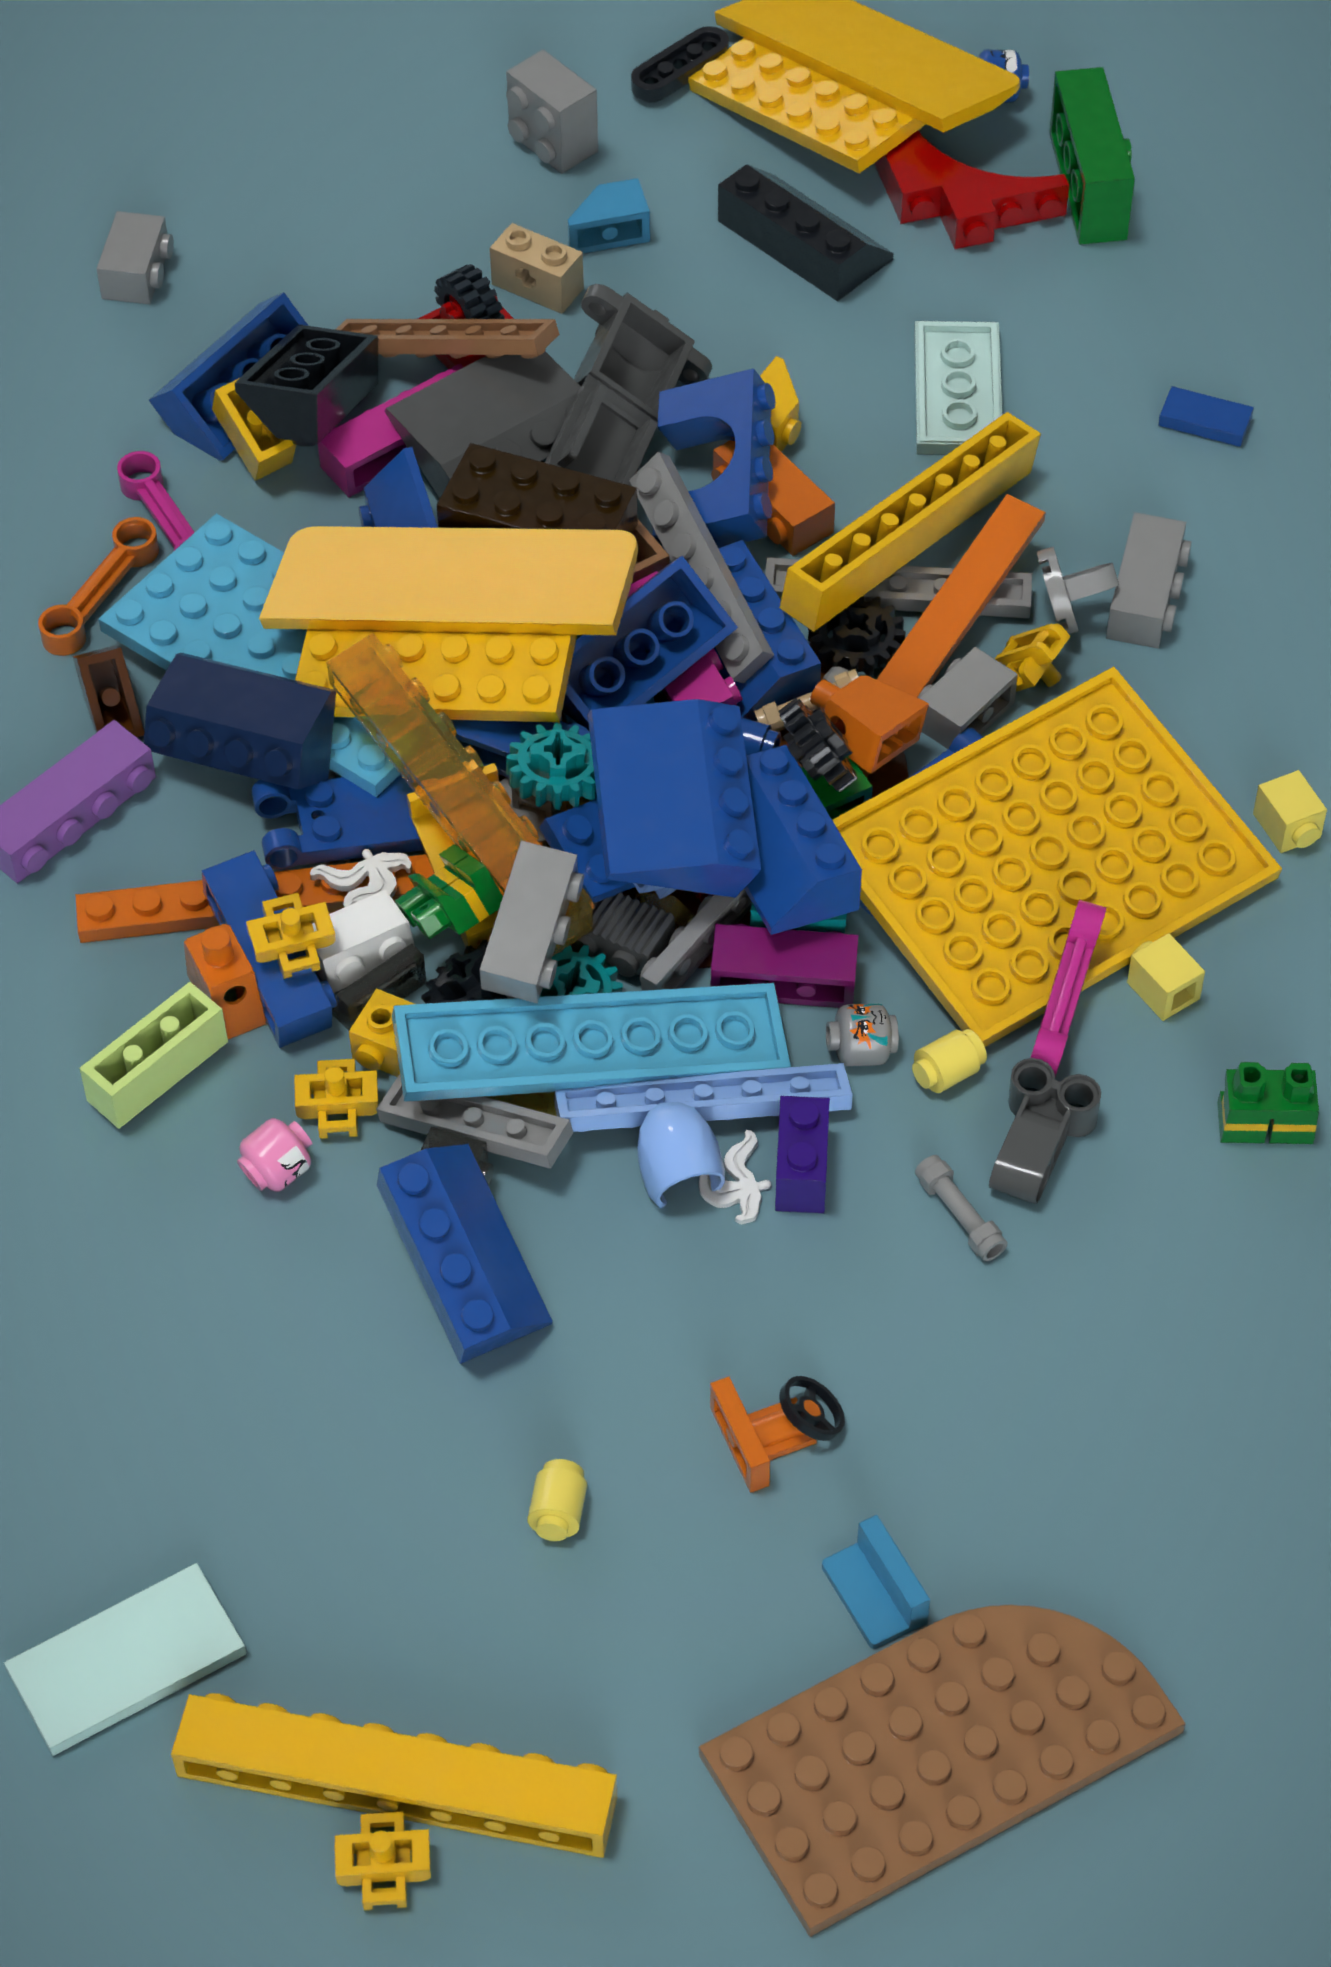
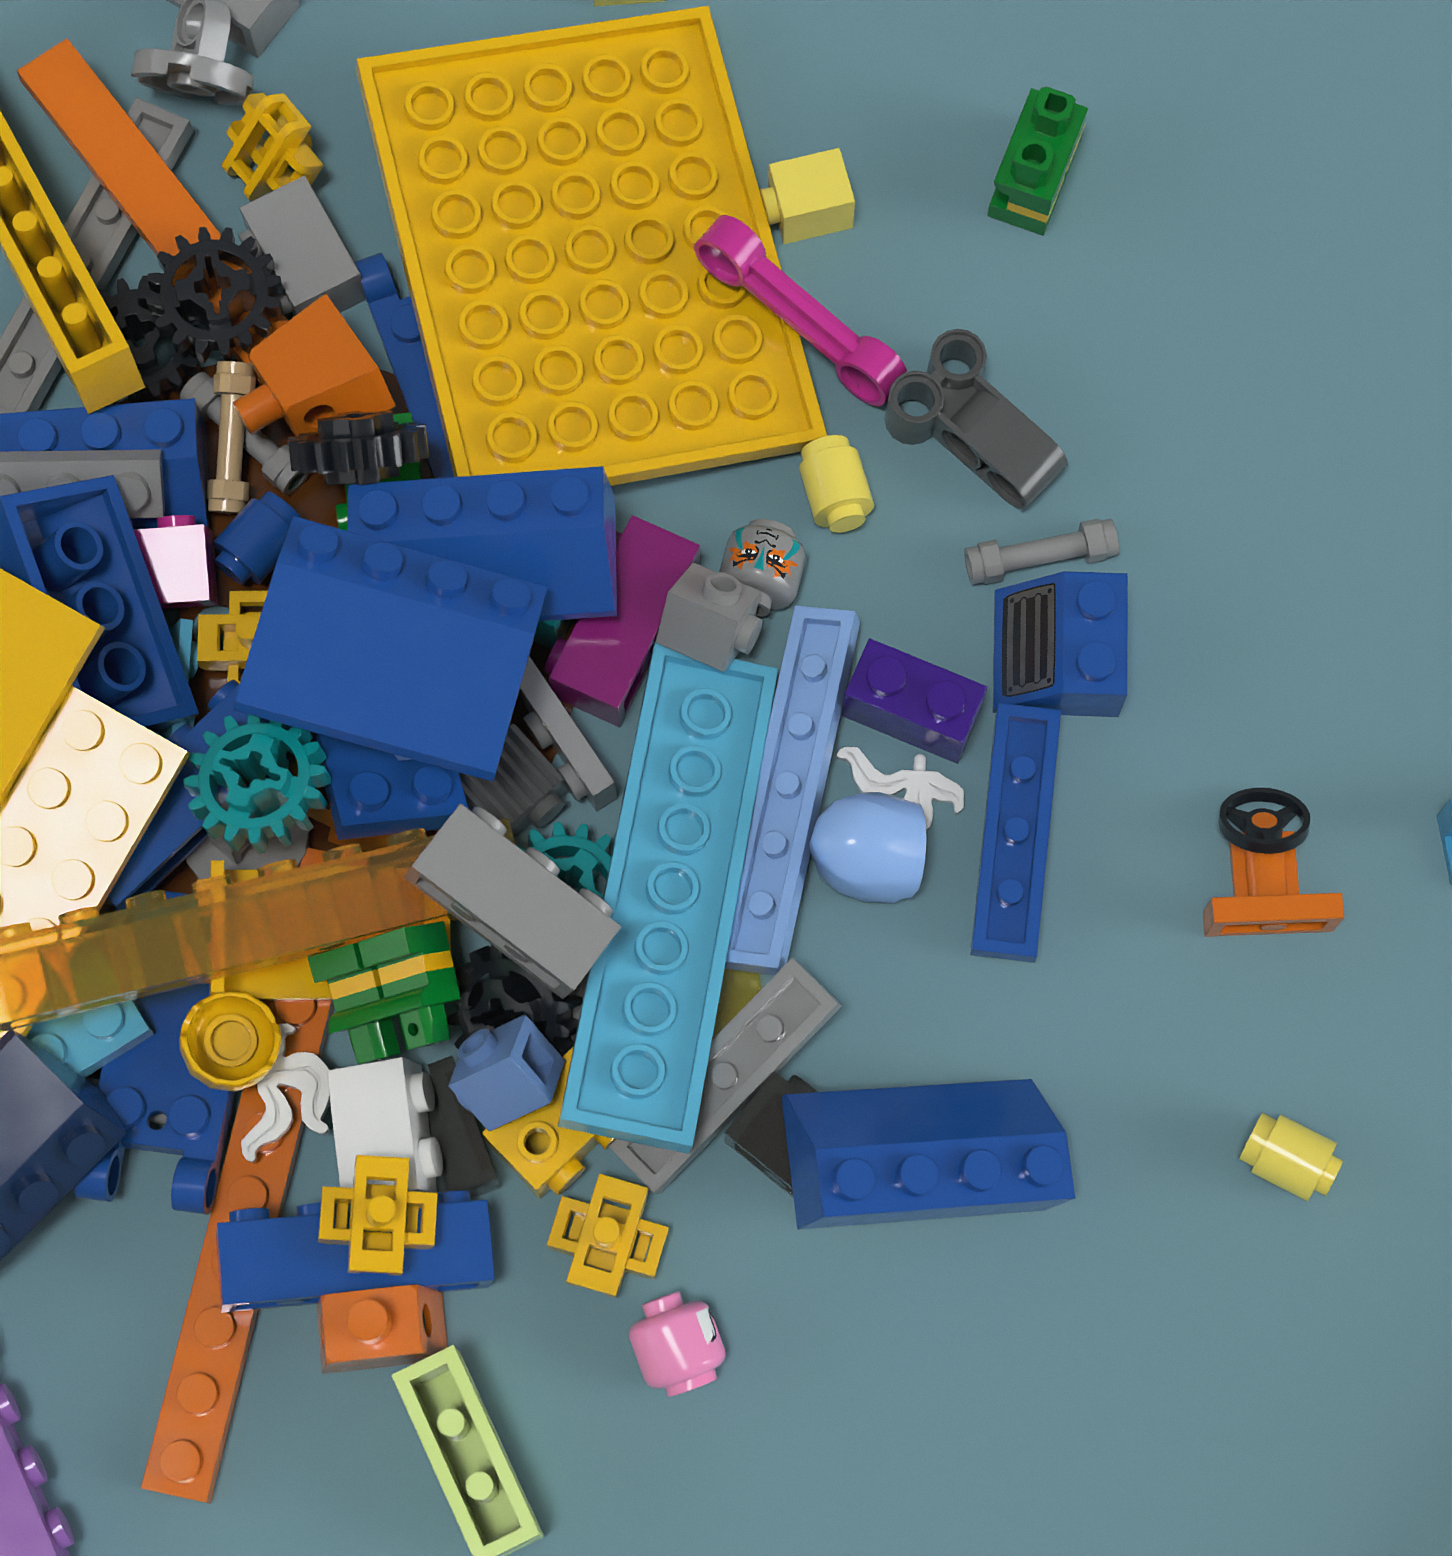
camera: 70 degrees left, 20 degrees up
(380, 823) = (229, 1040): none -> yellow hair
(419, 975) = (506, 1072): none -> medium blue brick
(733, 1252) = (1016, 833): none -> blue plate
(804, 1004) = (710, 617): none -> light grey brick
(892, 1244) = (1062, 643): none -> blue slope
(901, 648) = (241, 291): none -> black gear

